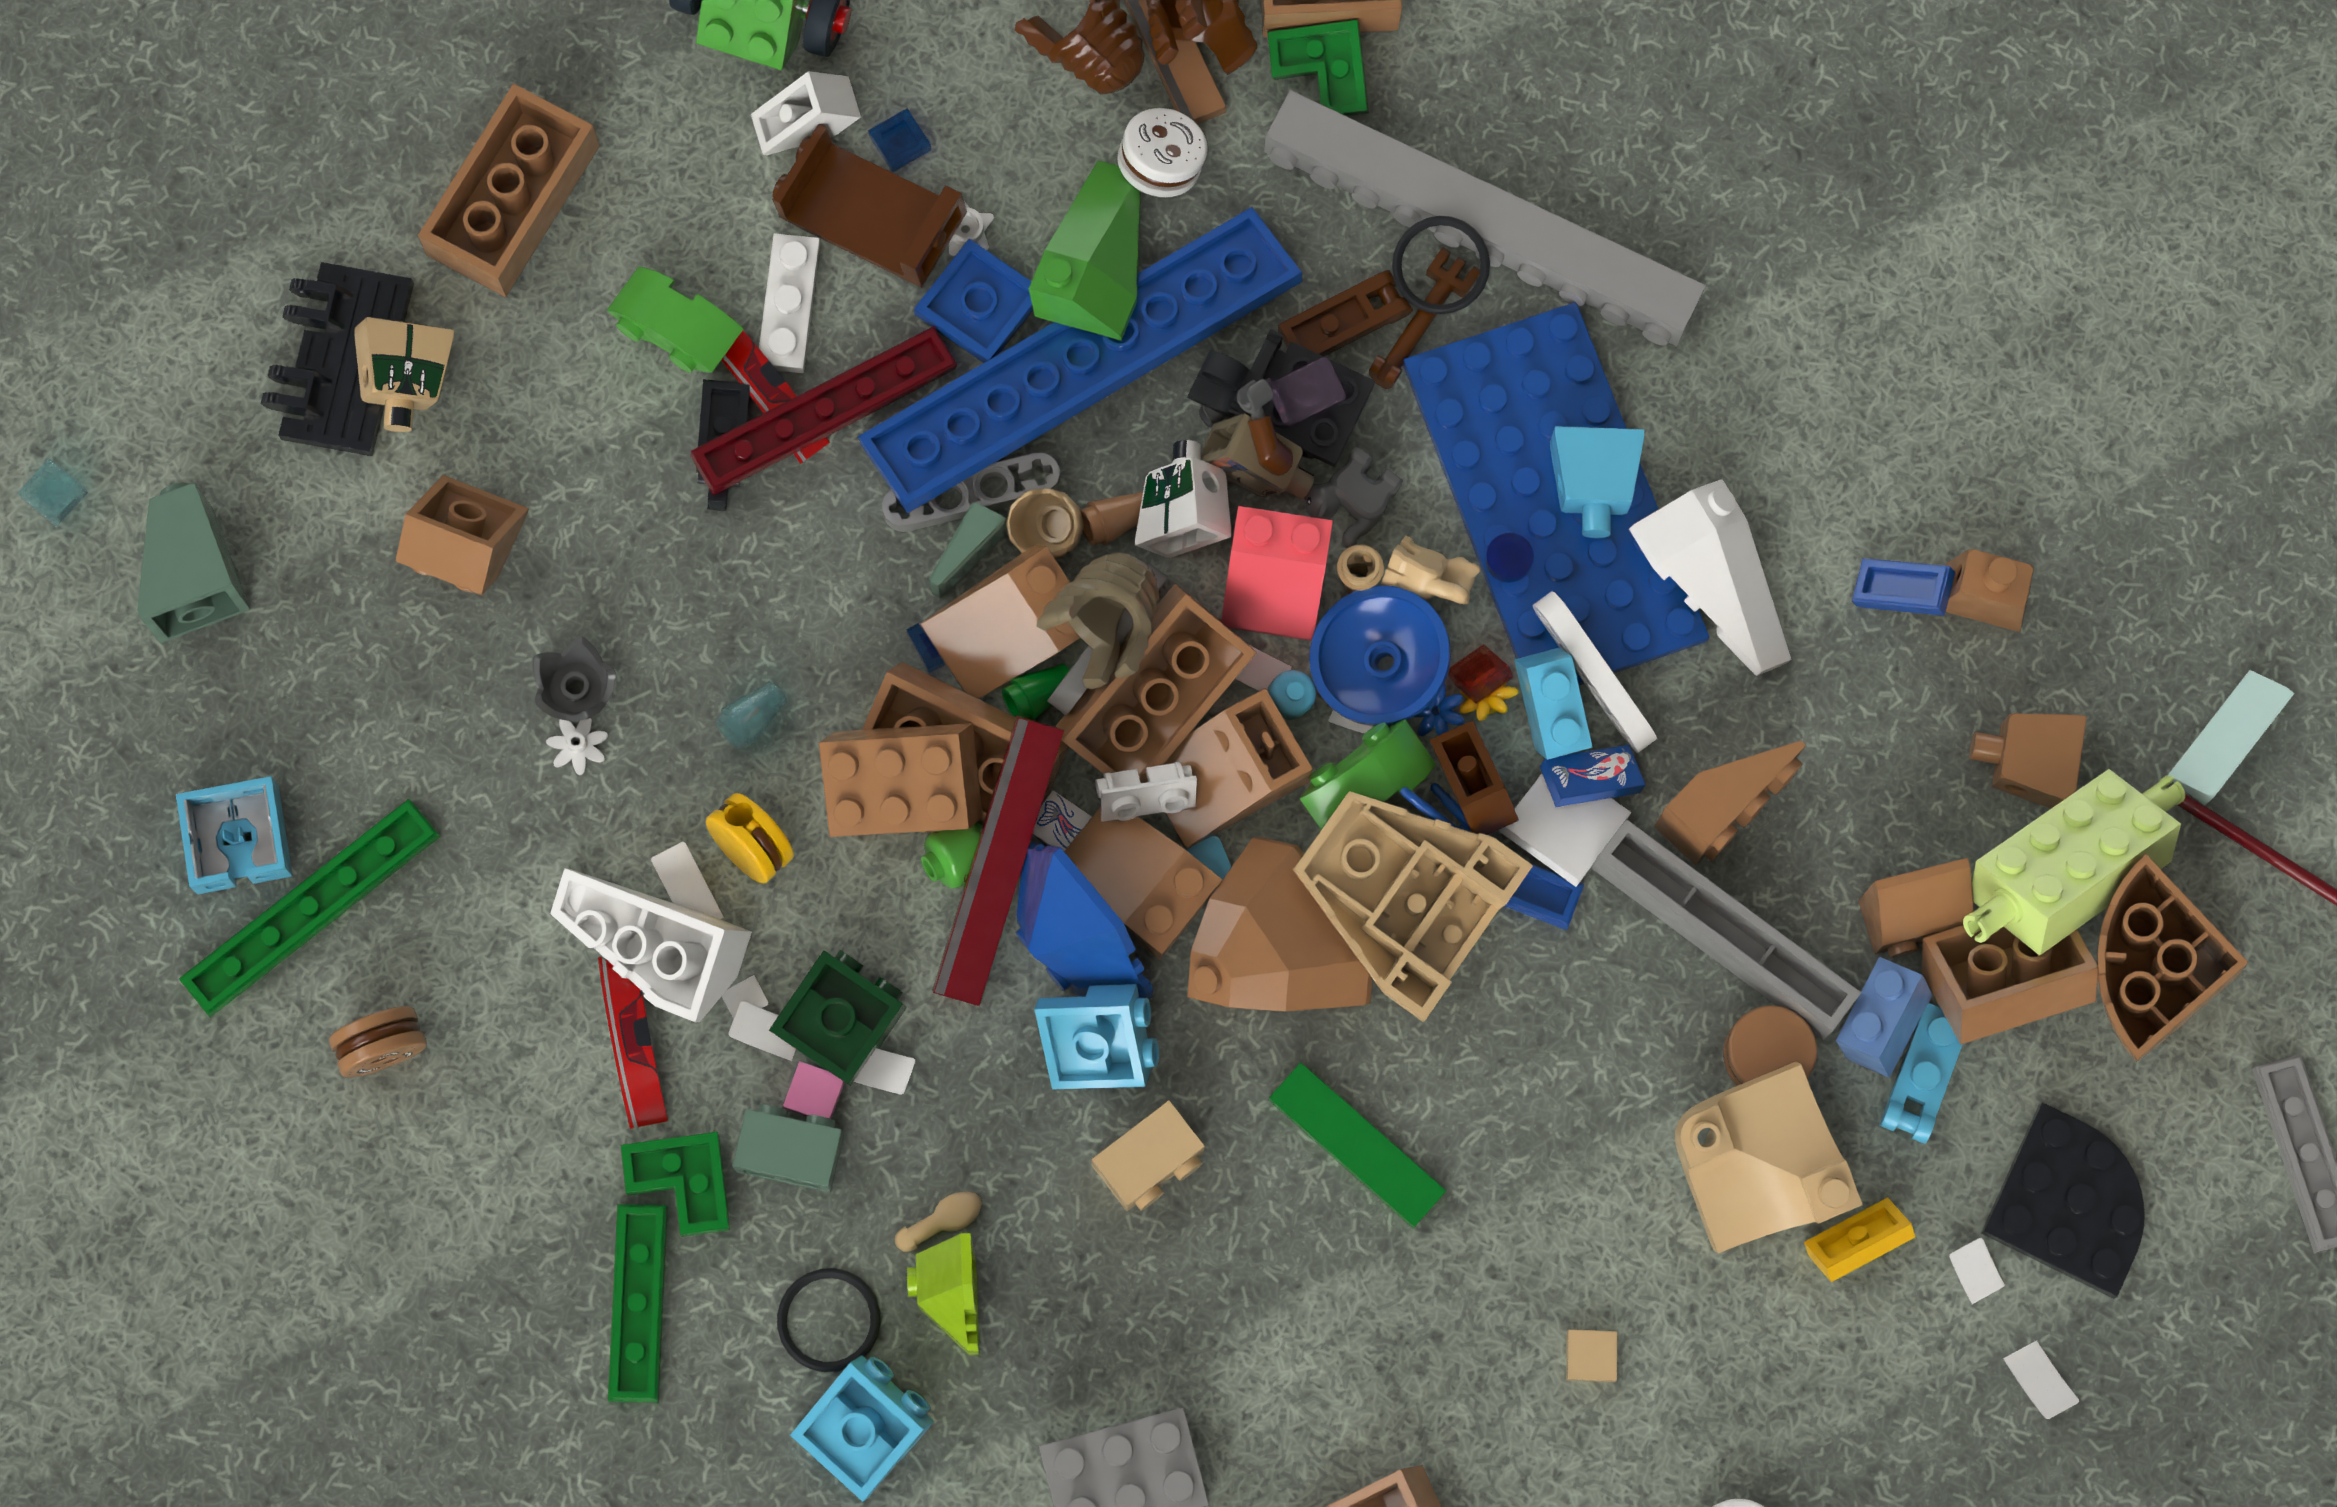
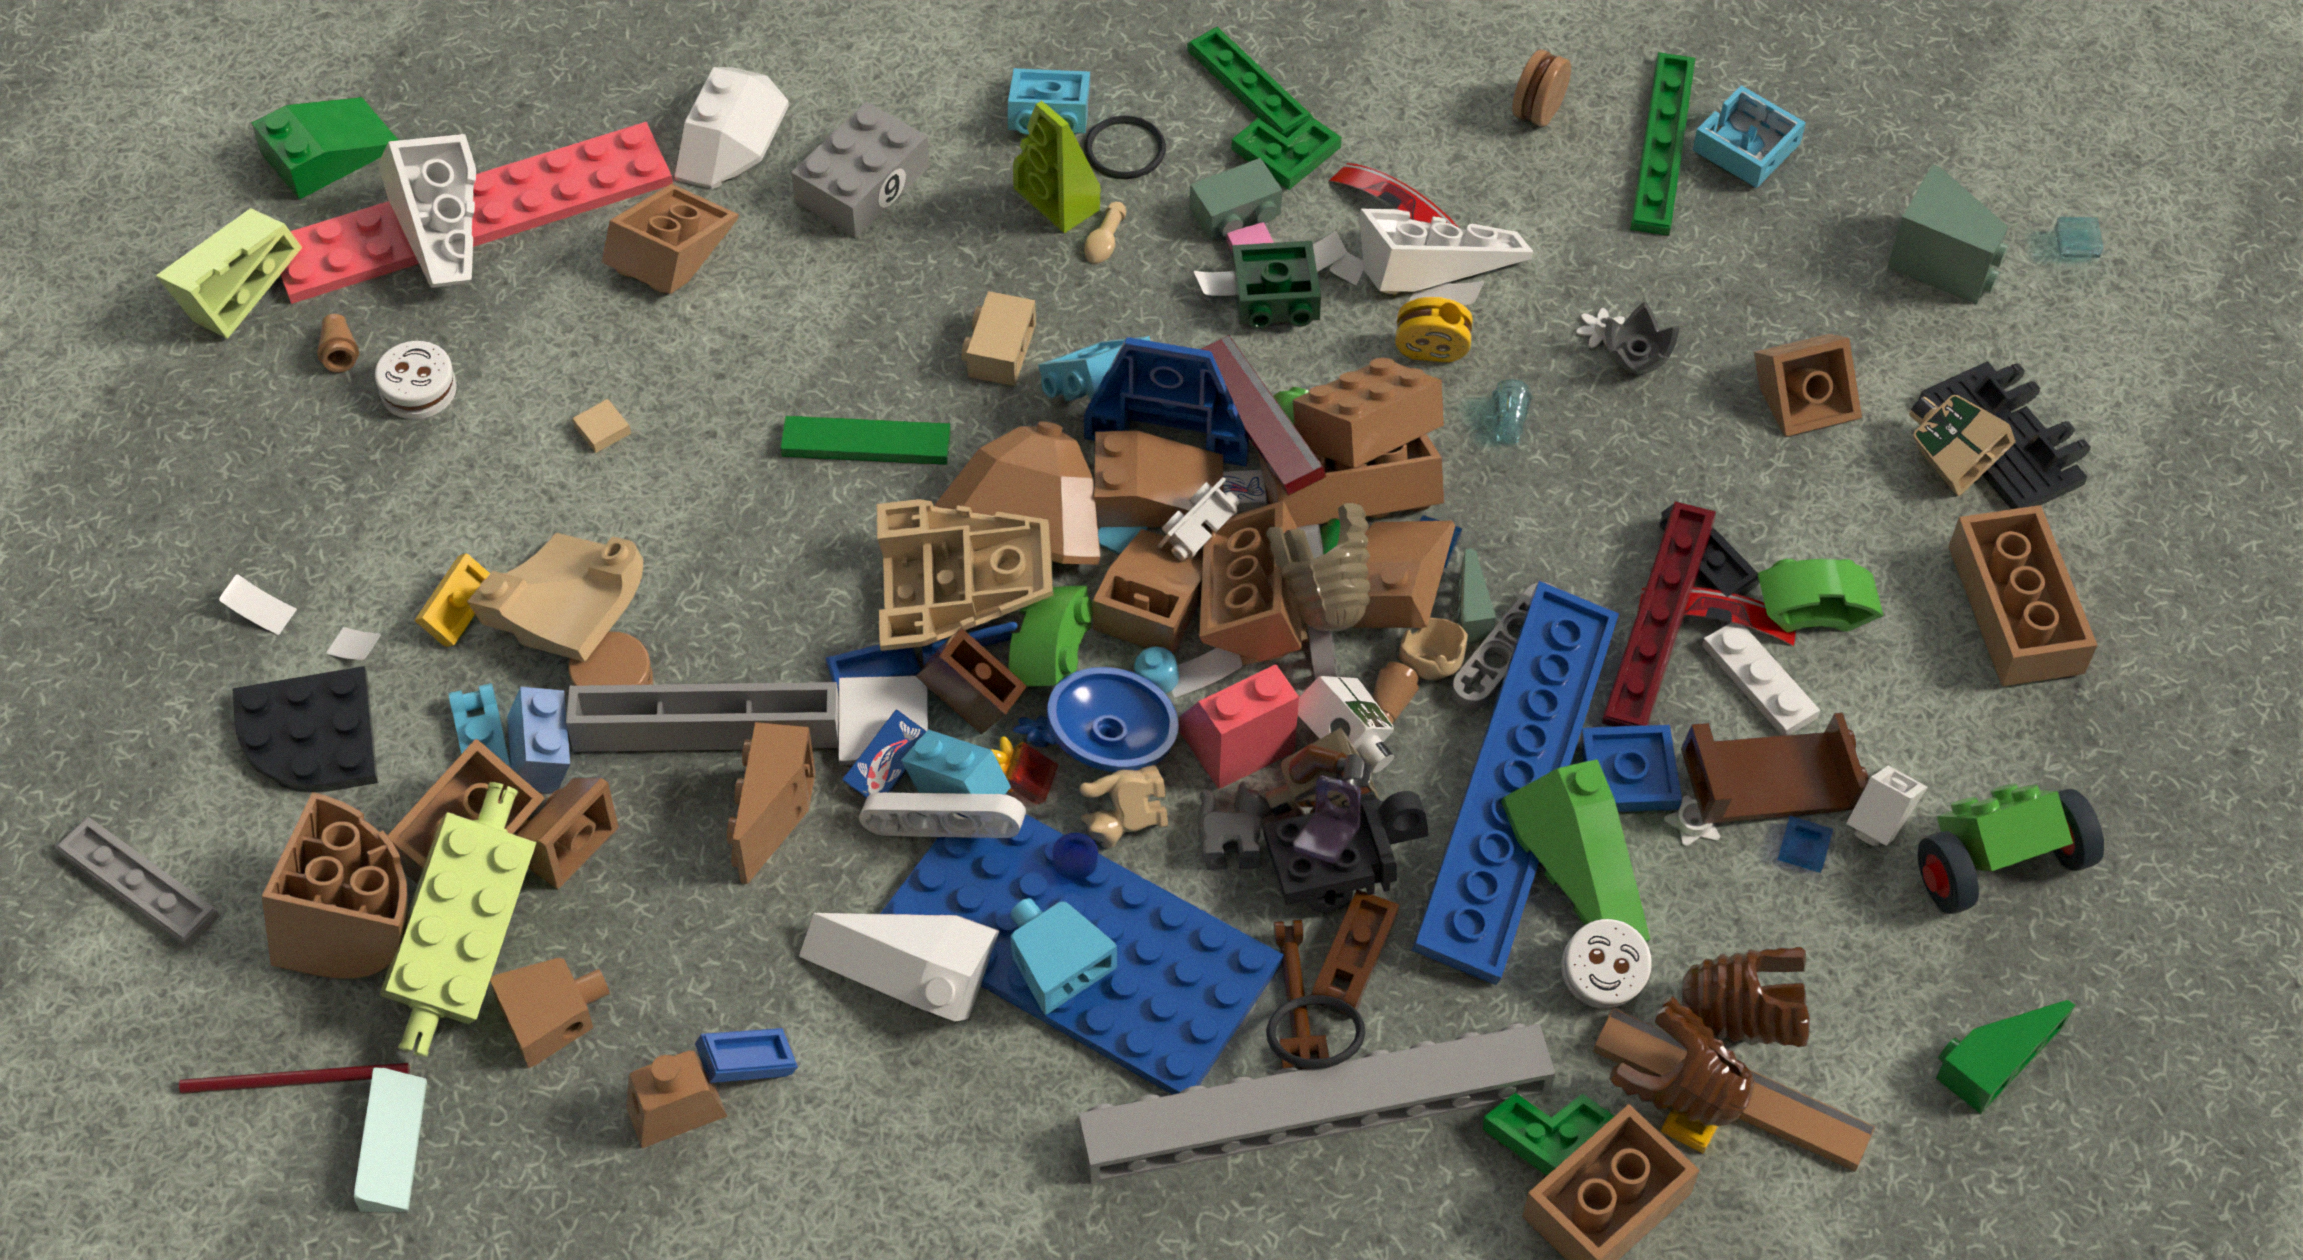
camera: 145 degrees right, 20 degrees down
(1361, 560) = (1178, 766): tan cone -> none

